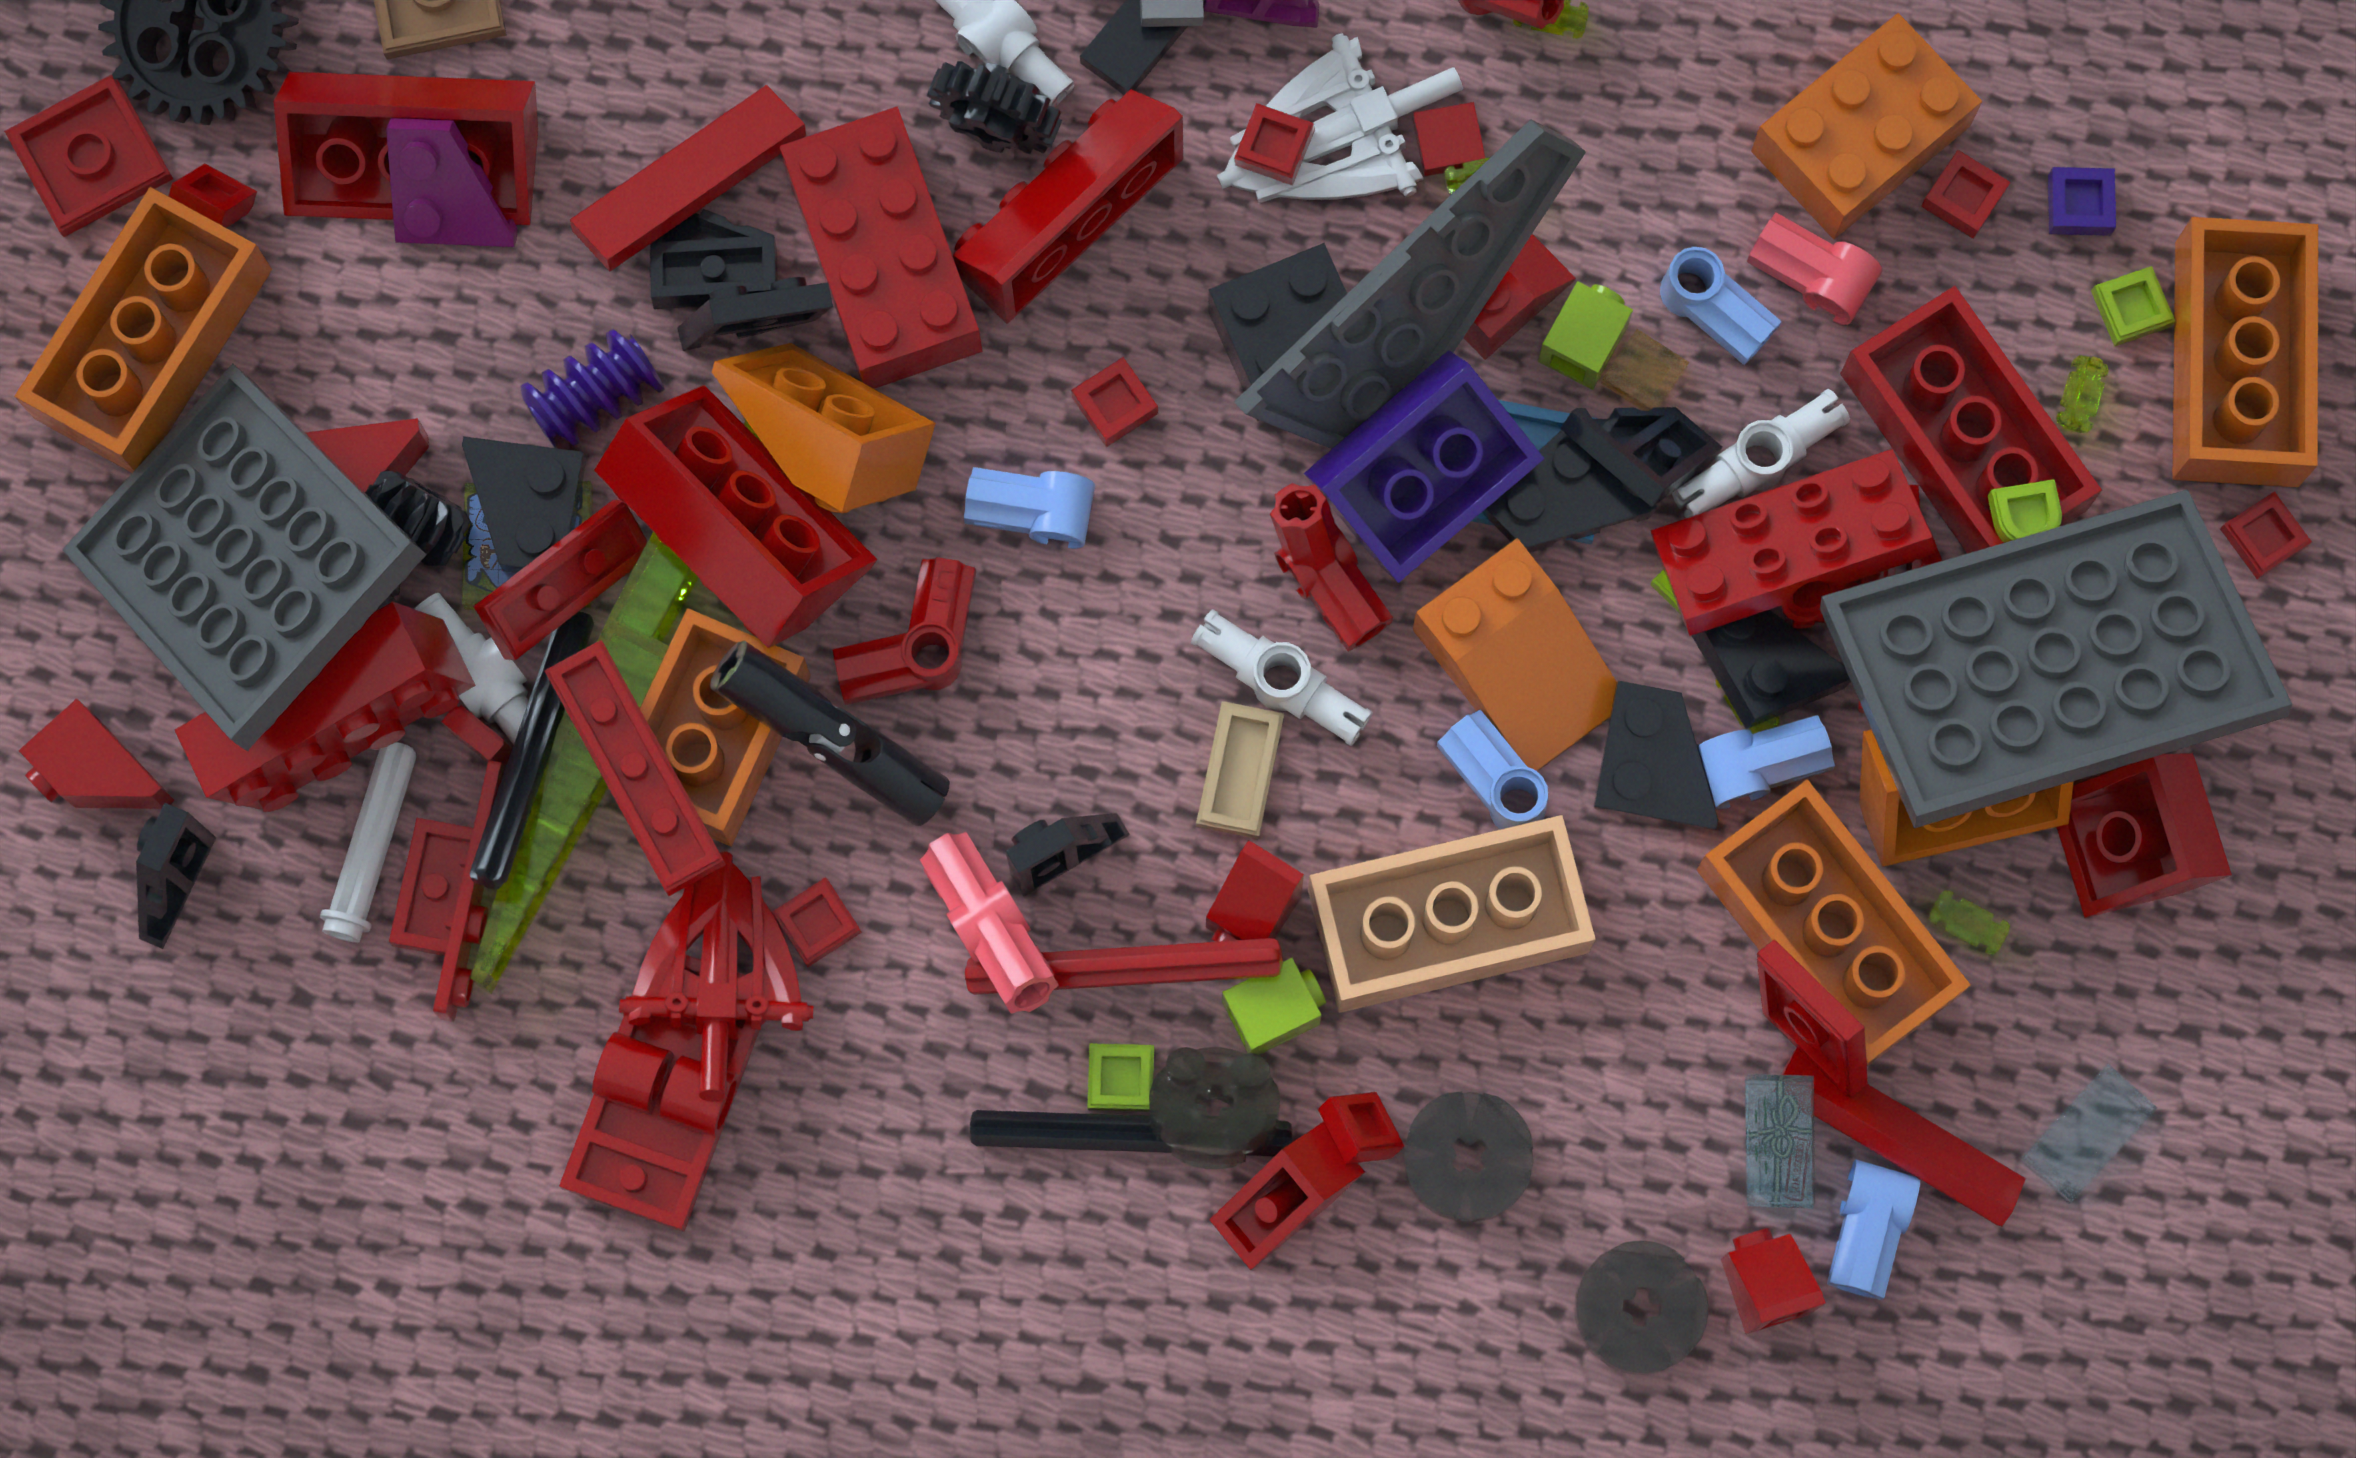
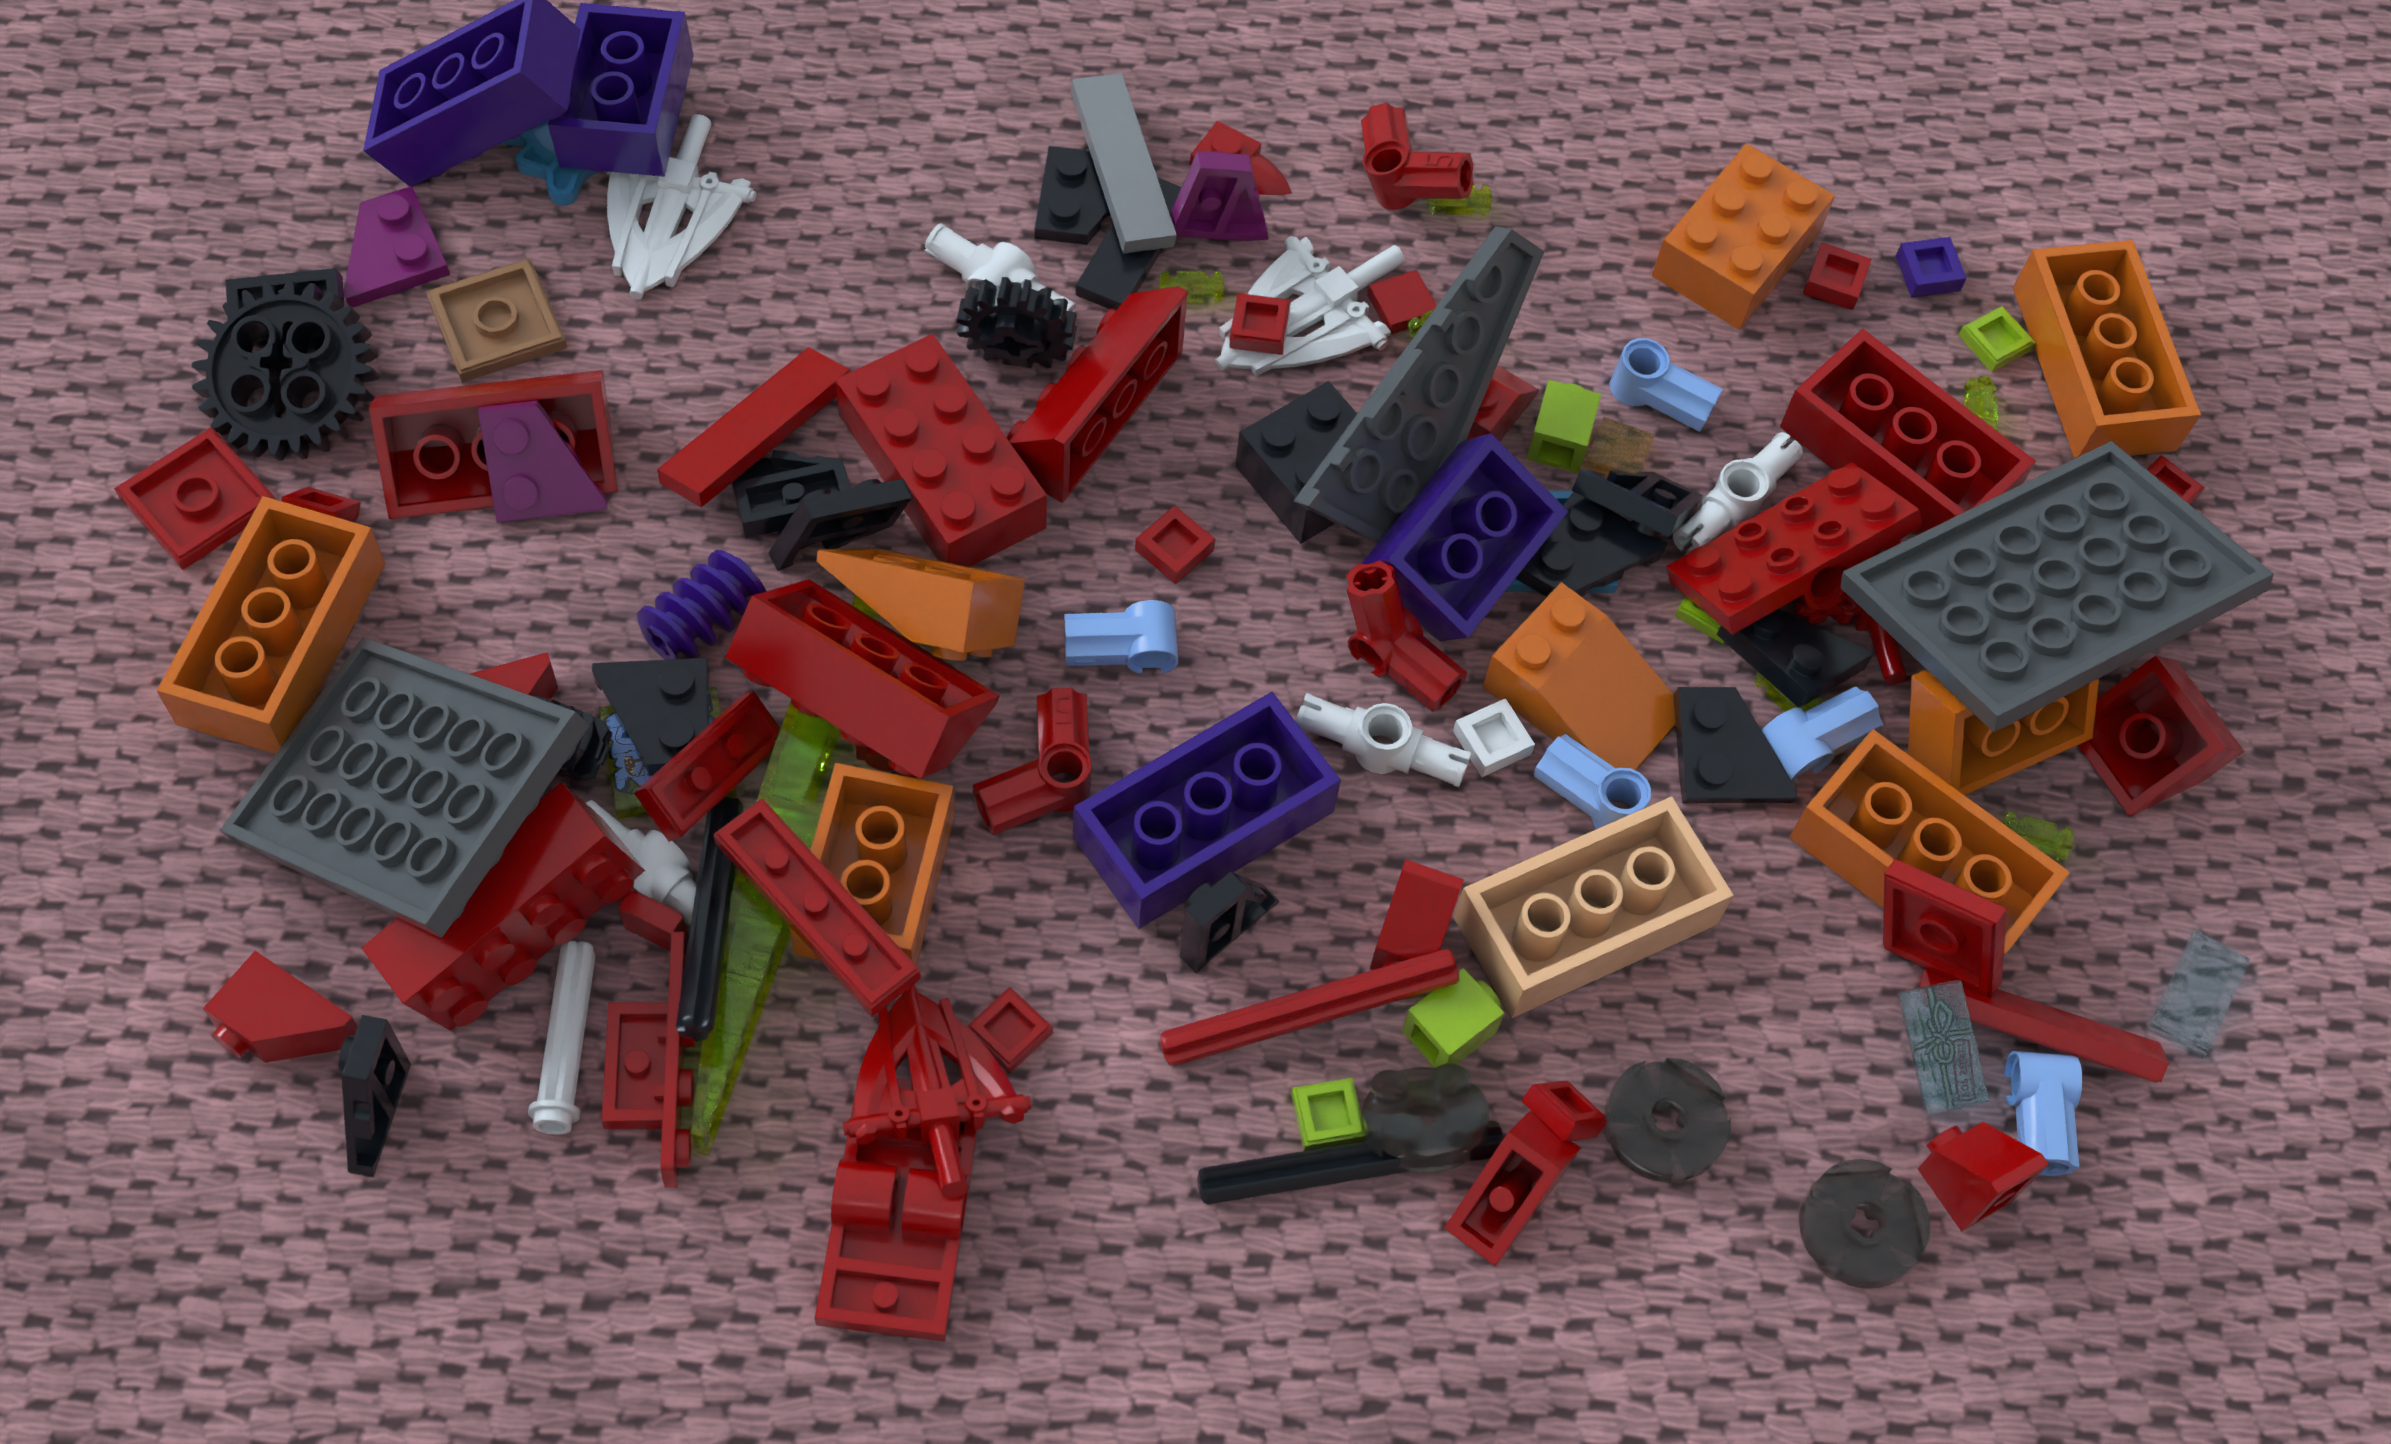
camera: 20 degrees left, 15 degrees down
(807, 716) = (987, 842): black piece -> none
(988, 922) = (1177, 991): coral piece -> none
(1069, 724) = (1205, 809): none -> dark purple brick
(1211, 78) = (1196, 283): none -> clear neon green piece
(1240, 770) = (1365, 828): tan tile -> none
(1404, 696) = (1493, 737): none -> white plate
(1825, 273) = (1750, 351): coral piece -> none
(2025, 509) = (1980, 481): lime tile -> none

